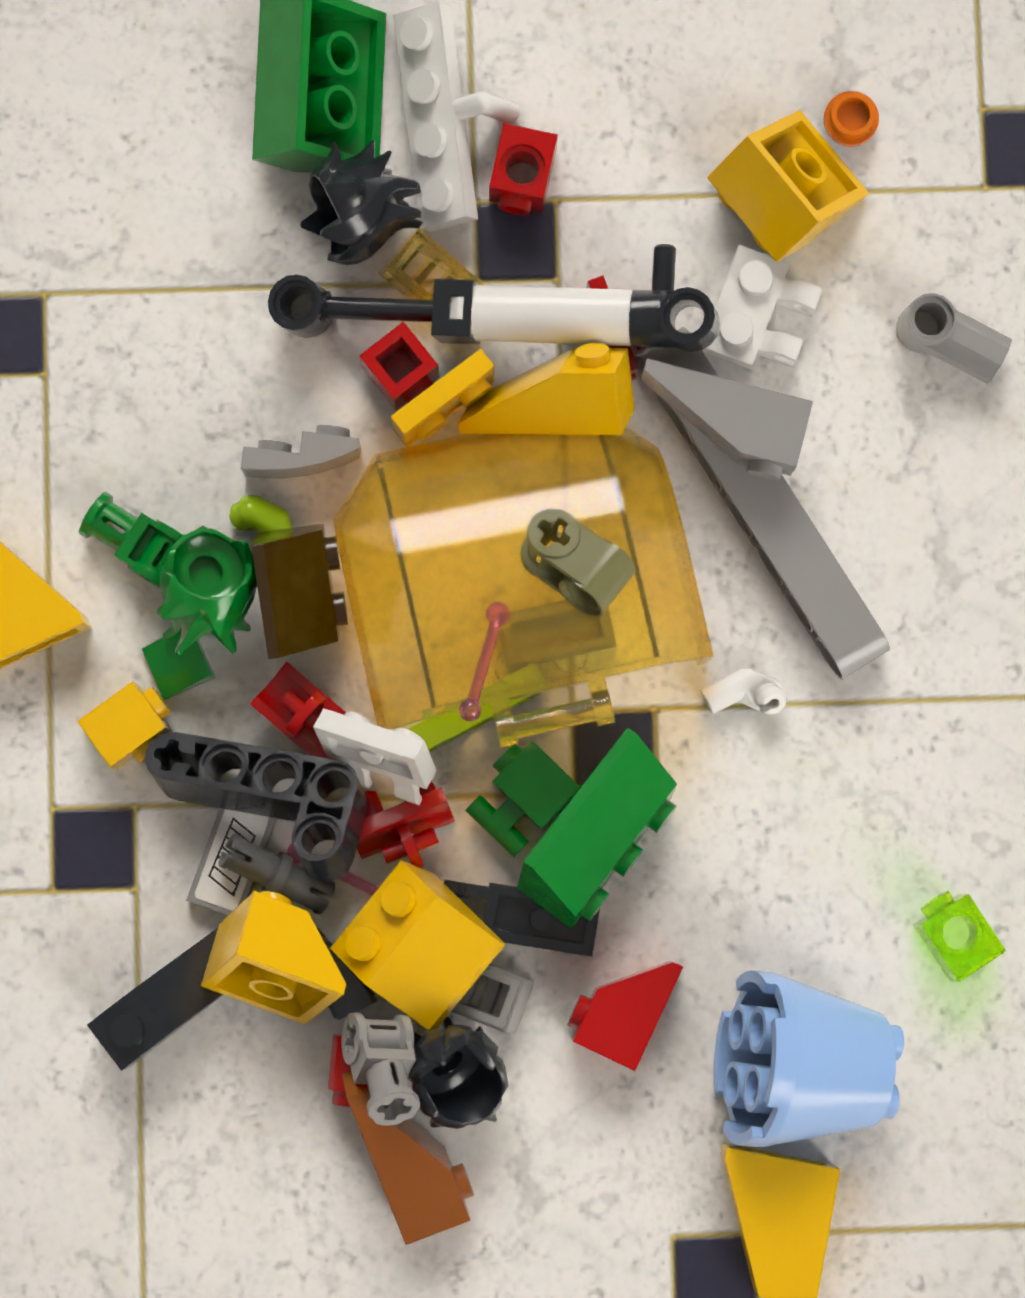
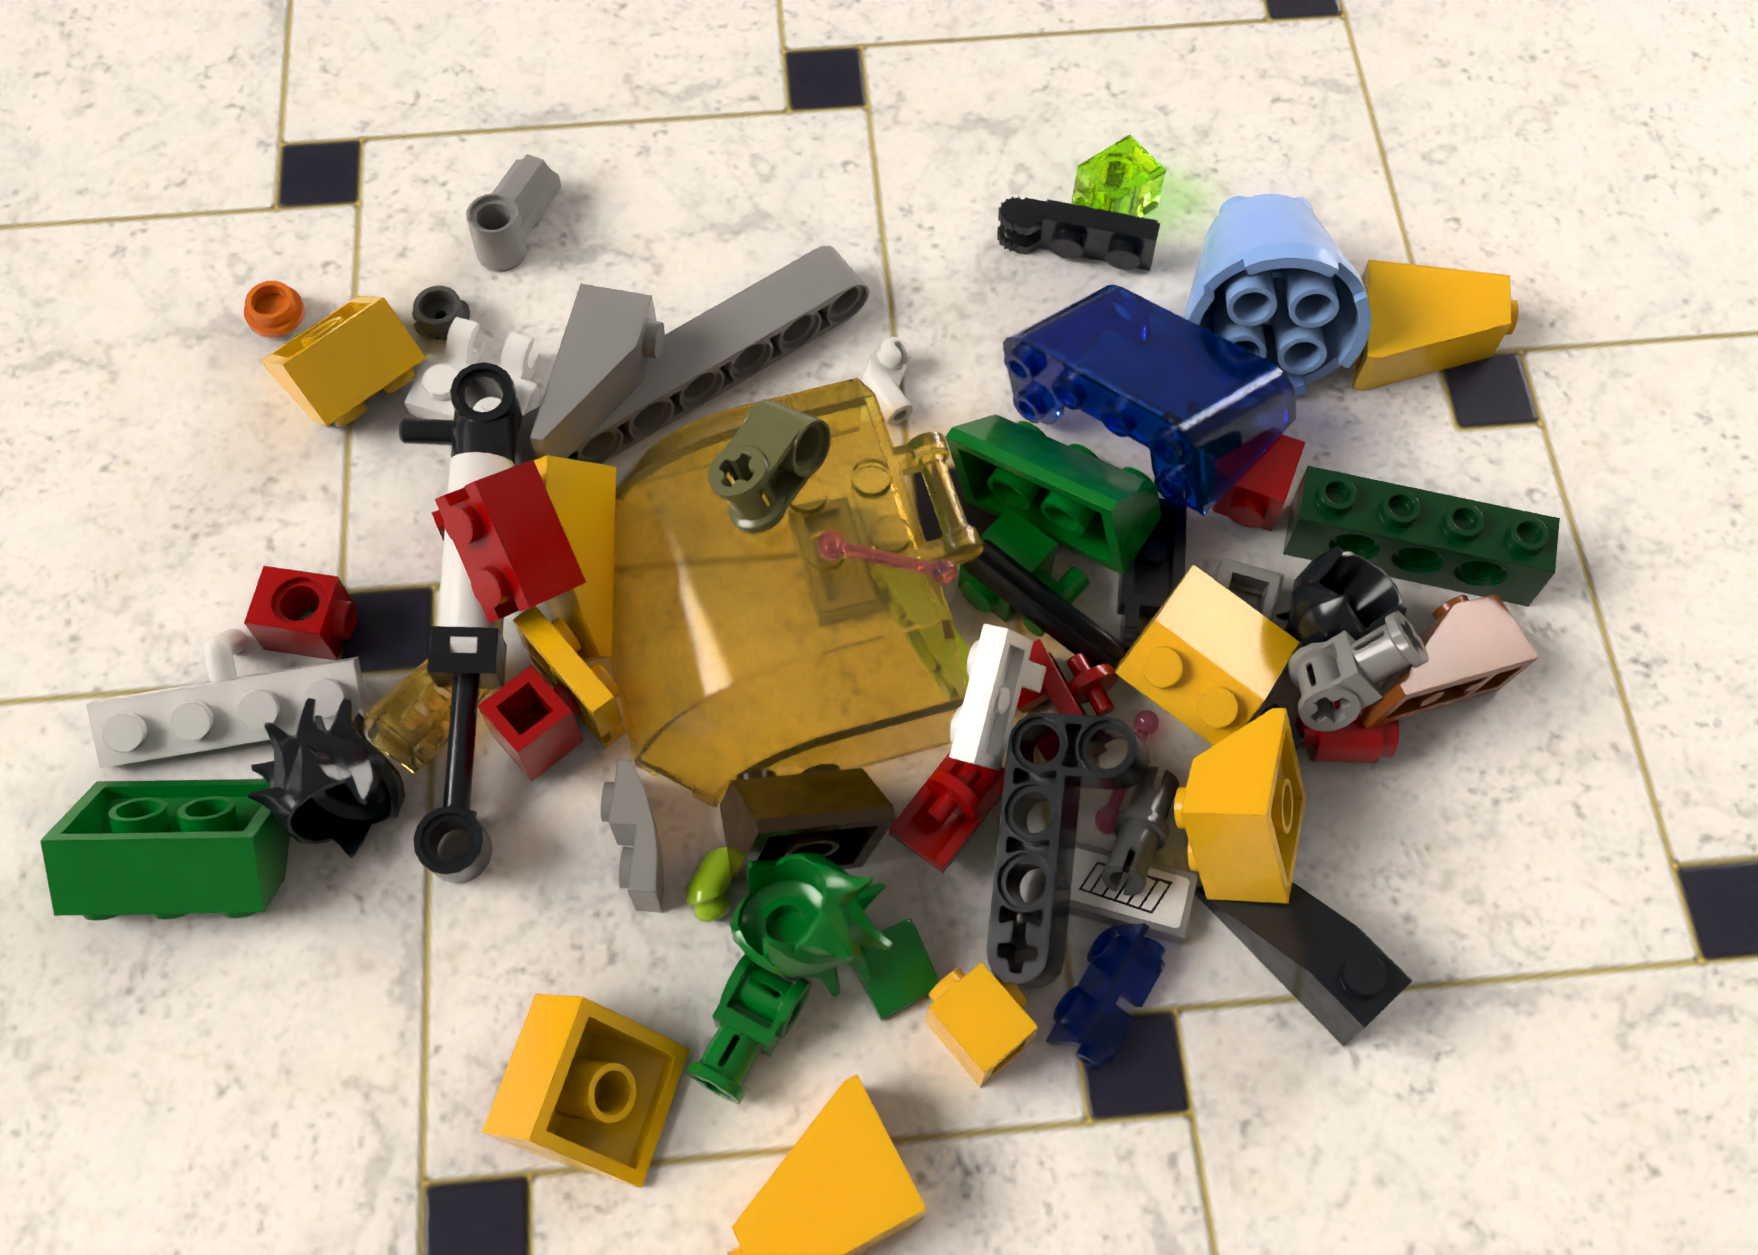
camera: 90 degrees left, 20 degrees down
(96, 415) = (587, 1088): none -> yellow slope
(127, 814) = (1087, 1015): none -> clear blue hinge
(477, 810) = (1044, 606): none -> black axle
(534, 343) = (510, 541): none -> red brick
(541, 1167) = (1424, 535): none -> dark green brick
(691, 927) = (1160, 381): none -> clear blue windscreen
(845, 260) = (434, 303): none -> dark grey plate
(902, 885) = (1077, 232): none -> black hinge

